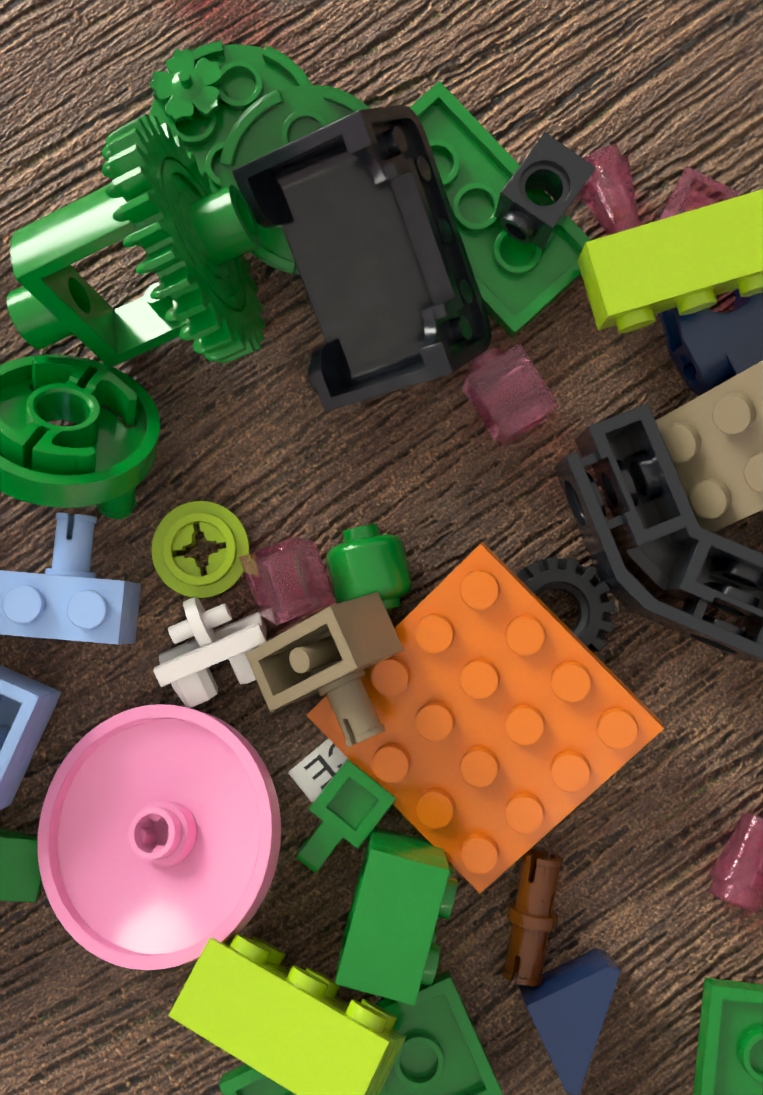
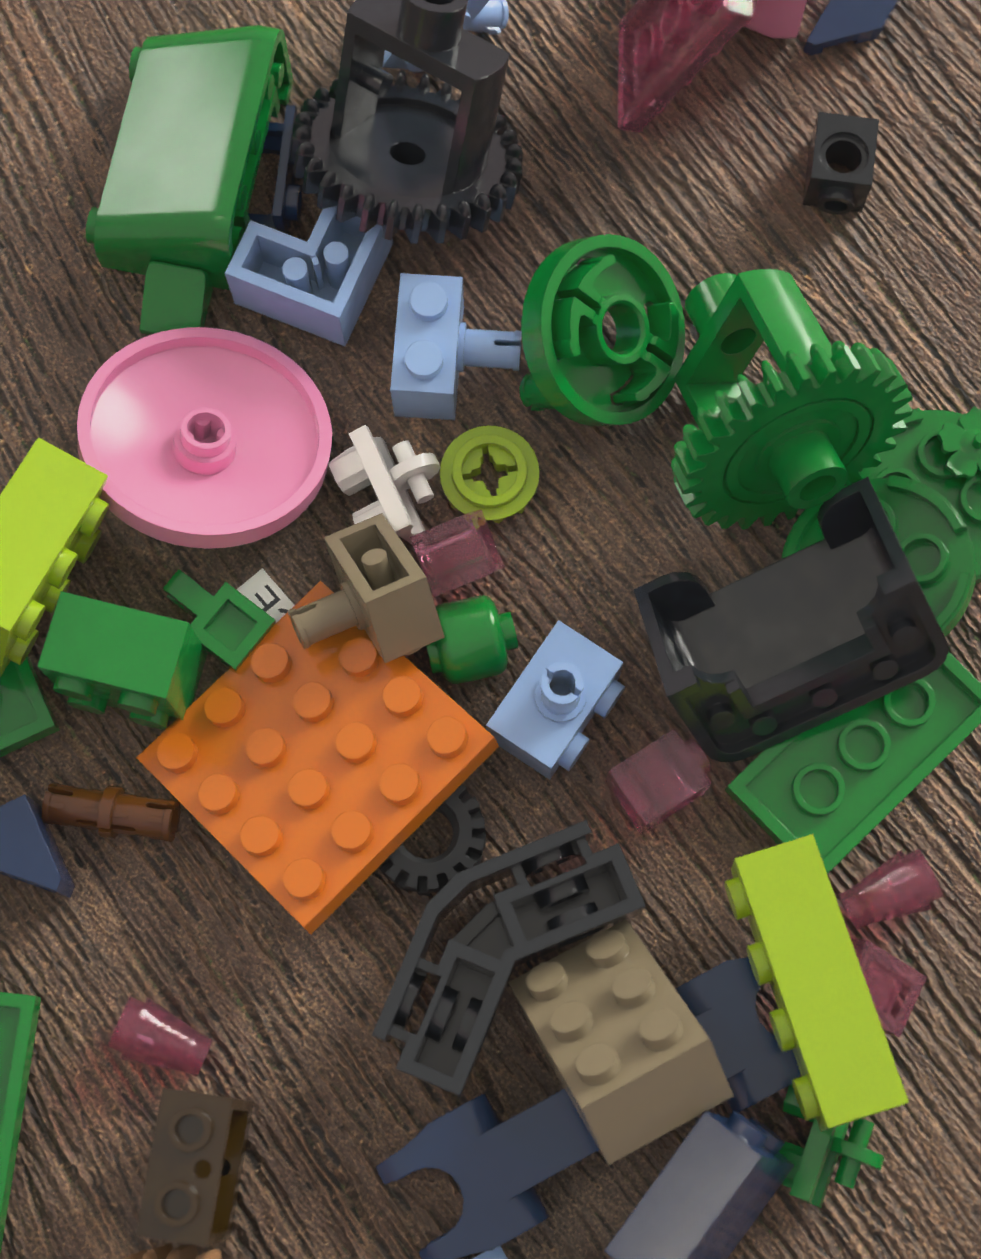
camera: 90 degrees right, 10 degrees down
(431, 487) = (556, 700): none -> light blue brick
(551, 169) = (902, 796): black brick -> none

